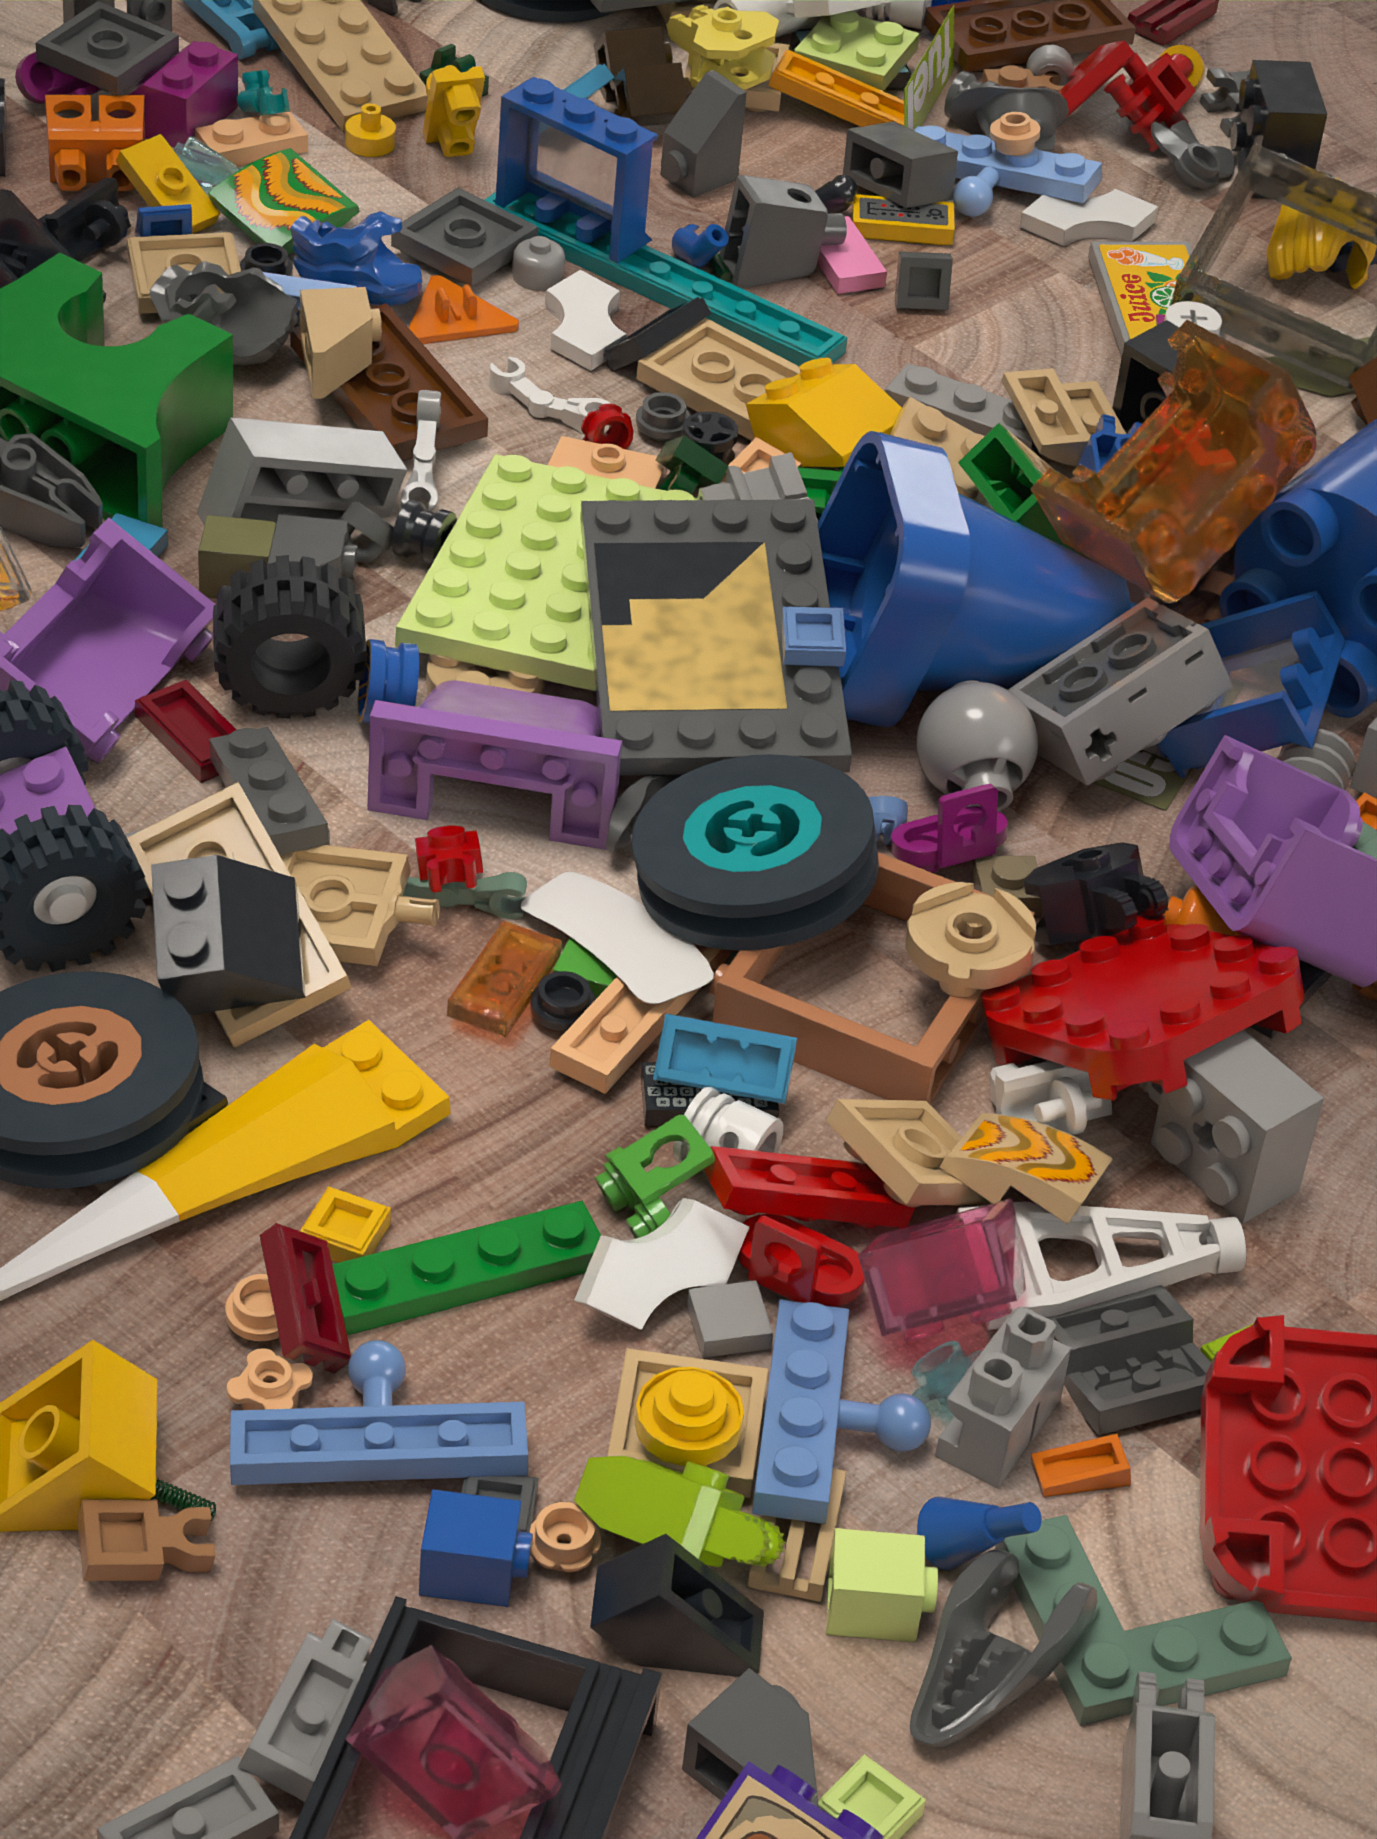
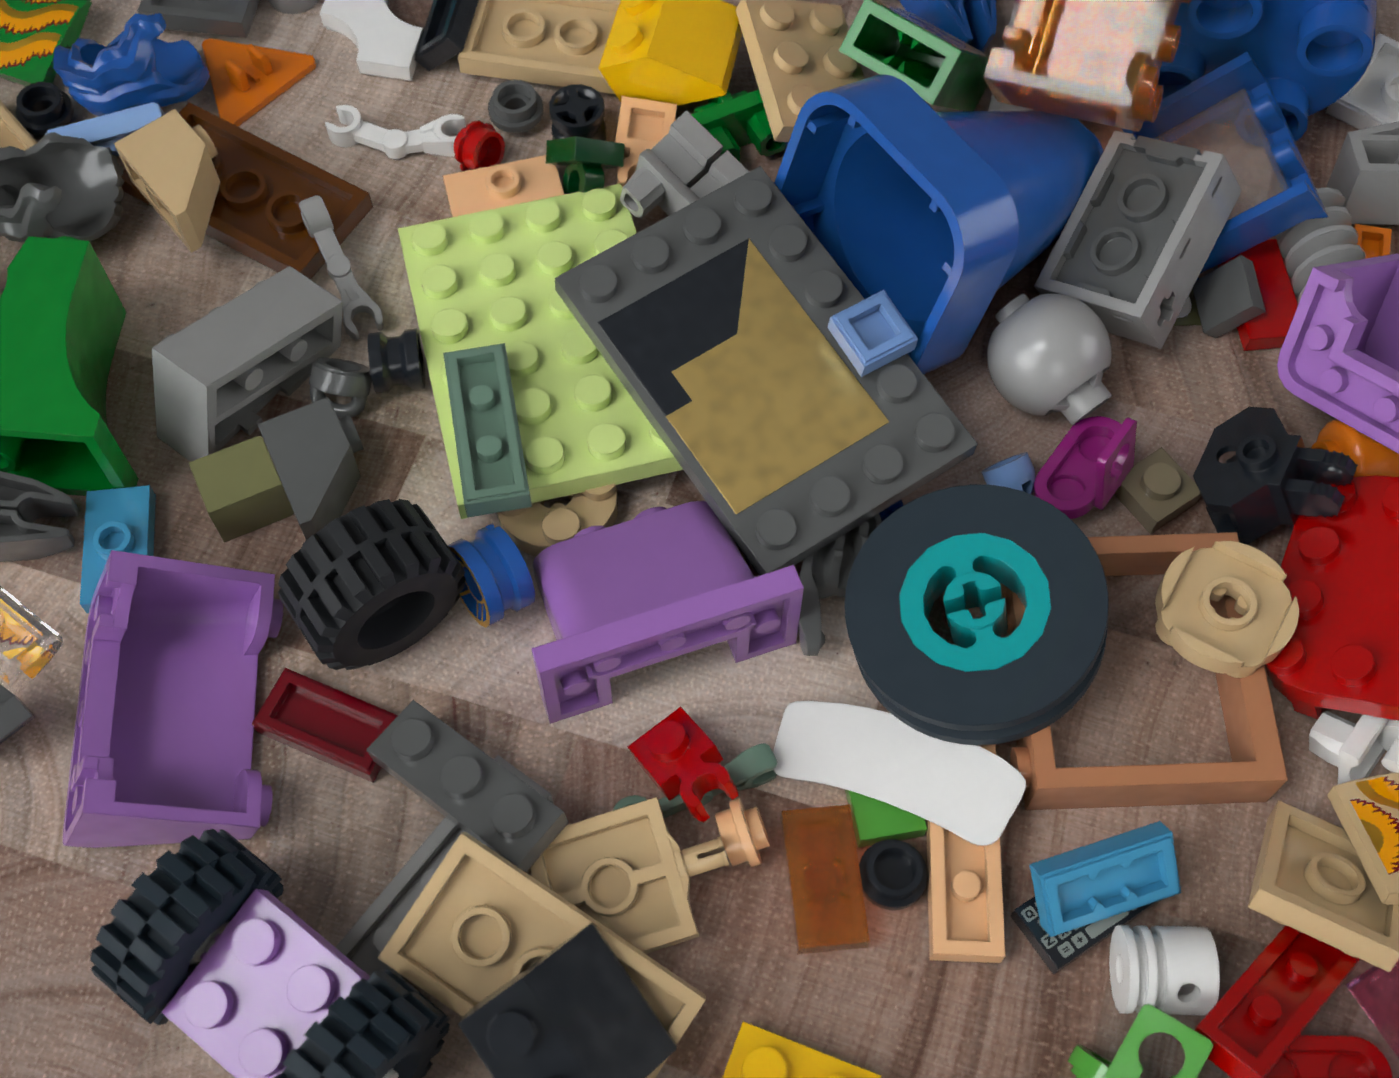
camera: 25 degrees left, 20 degrees up
(455, 585) = (486, 431): none -> sand green tile
(461, 921) = (742, 833): none -> light nougat plate
(1179, 786) = (1228, 297): none -> dark grey tile

